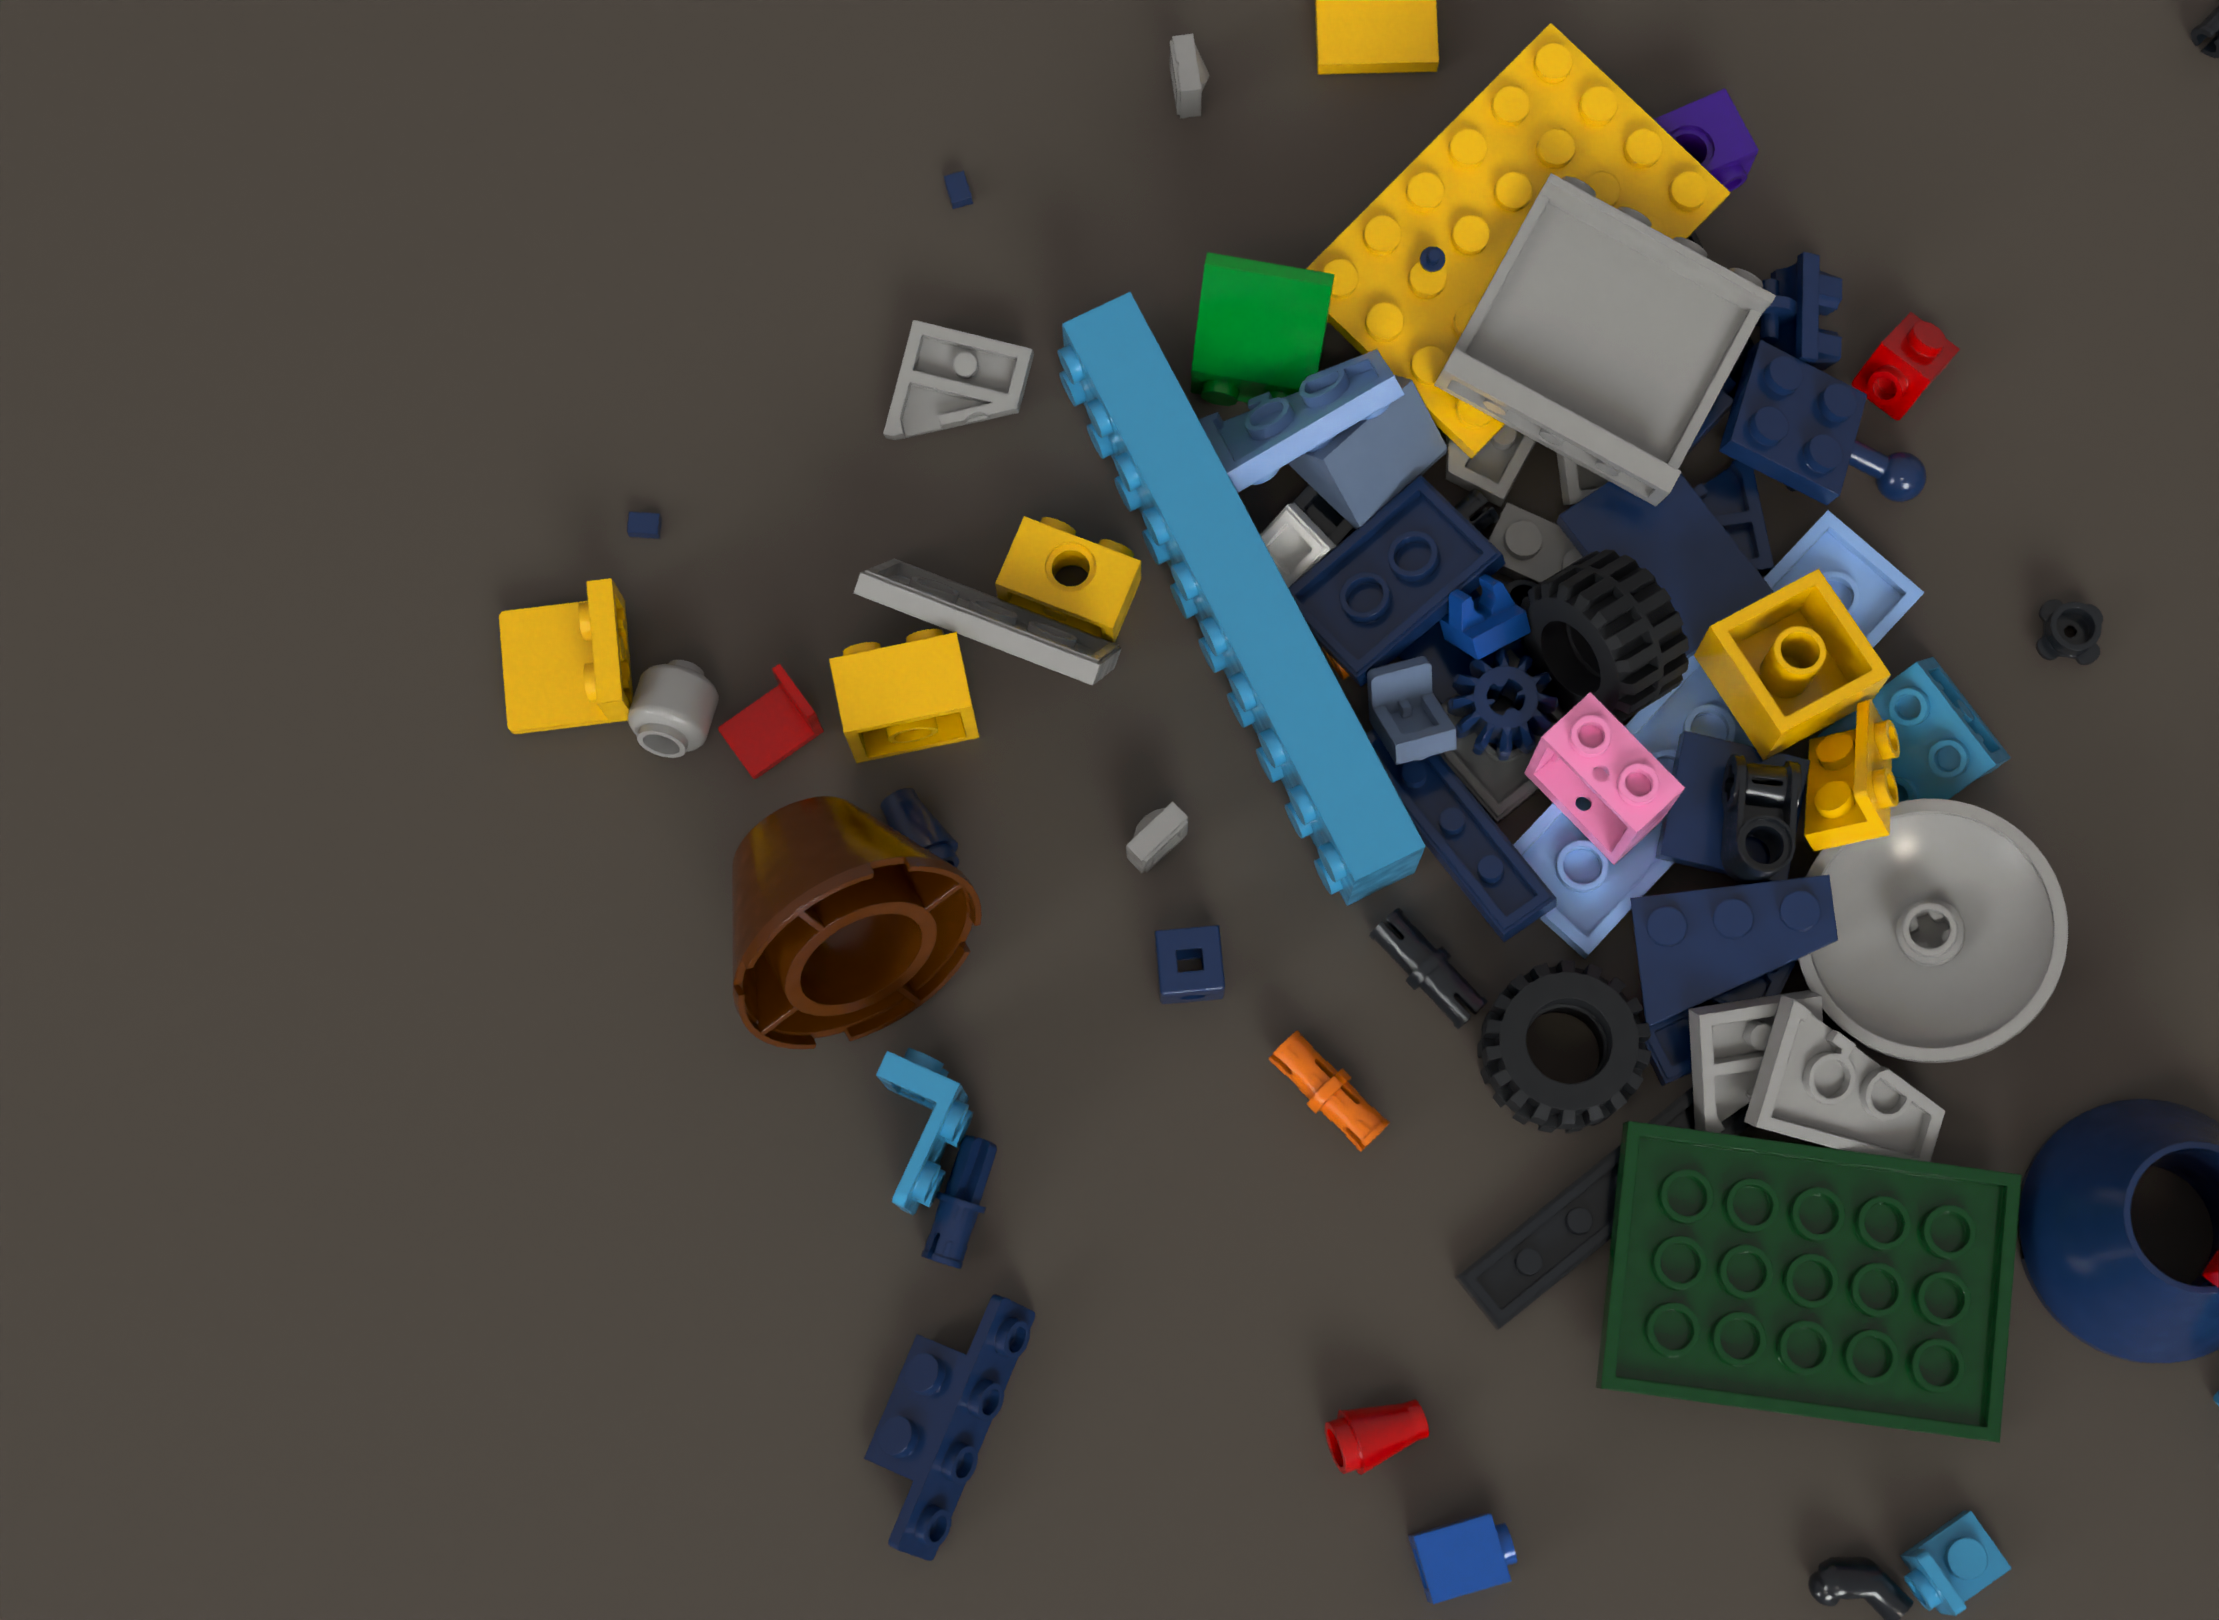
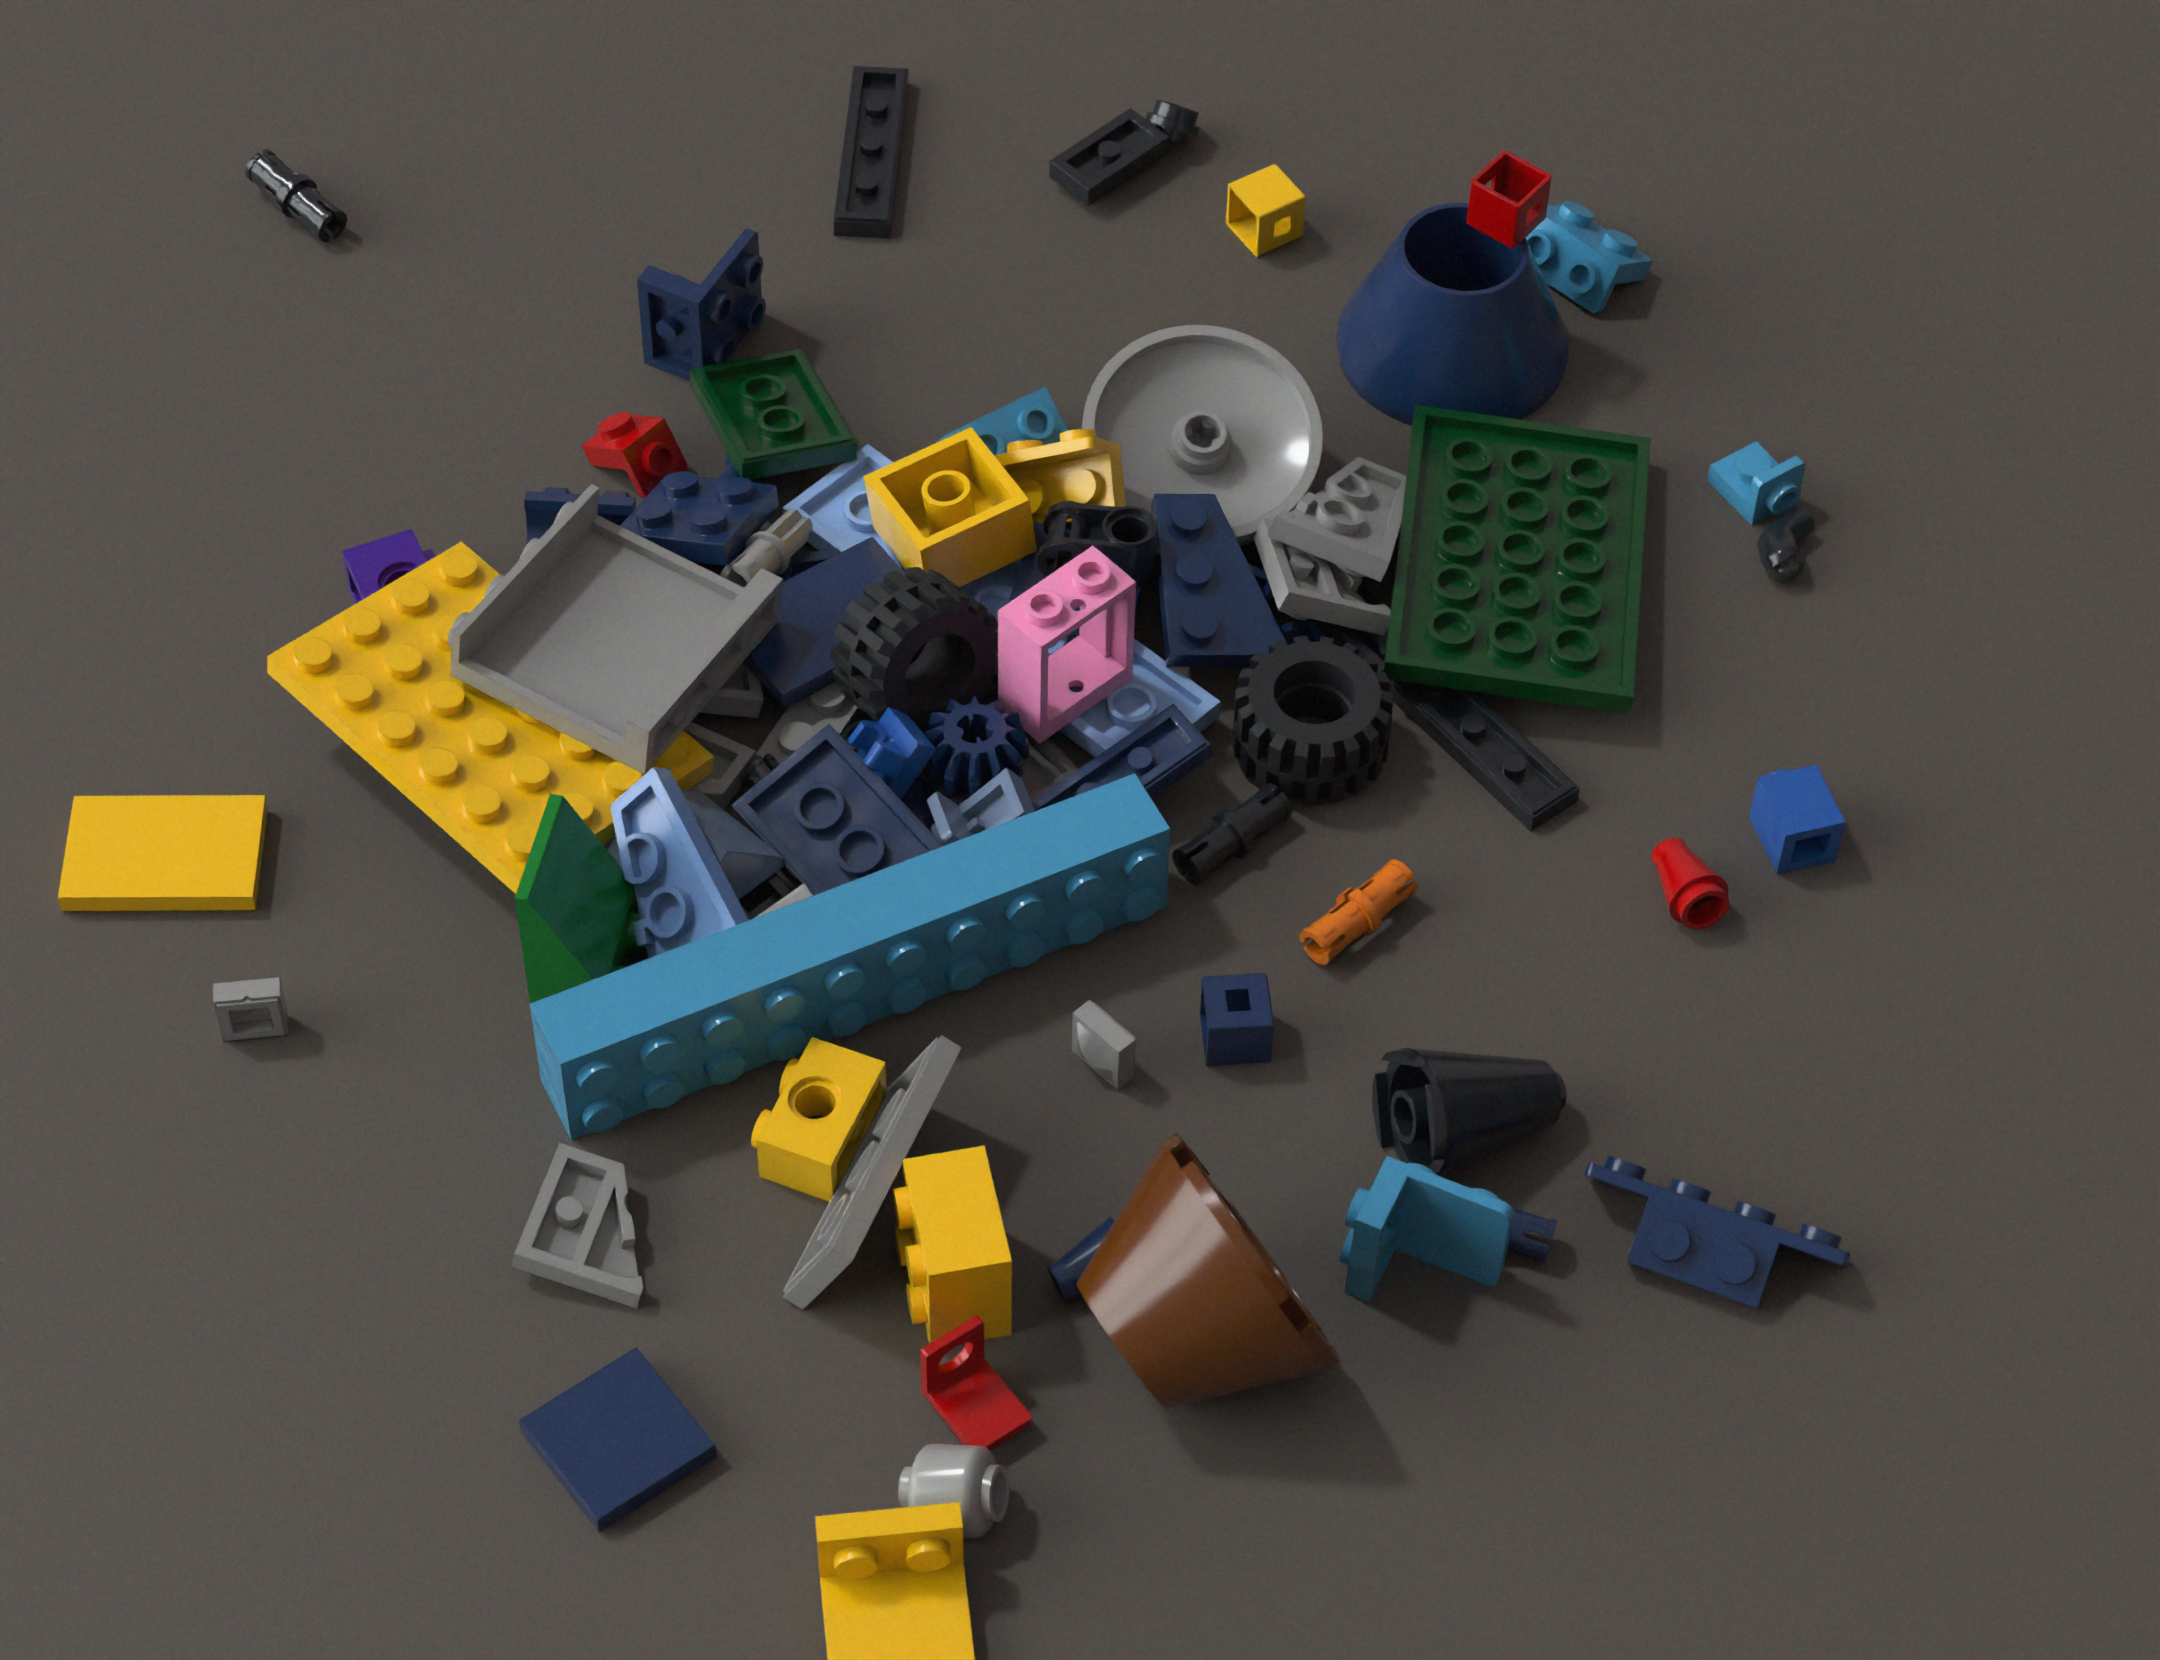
camera: 95 degrees left, 25 degrees down
(644, 525) = (727, 1543): dark blue piece -> none
(745, 427) = (617, 1439): none -> dark blue tile
(958, 189) = (349, 1235): dark blue piece -> none
(1076, 1183) = (1461, 1106): none -> black cone
(1432, 259) = (514, 760): dark blue piece -> none
(1747, 492) = (770, 548): none -> light grey axle
(1960, 494) = (772, 414): none -> dark green tile
(2082, 618) = (905, 354): black plate -> none
(2087, 427) = (701, 323): none -> dark blue bracket

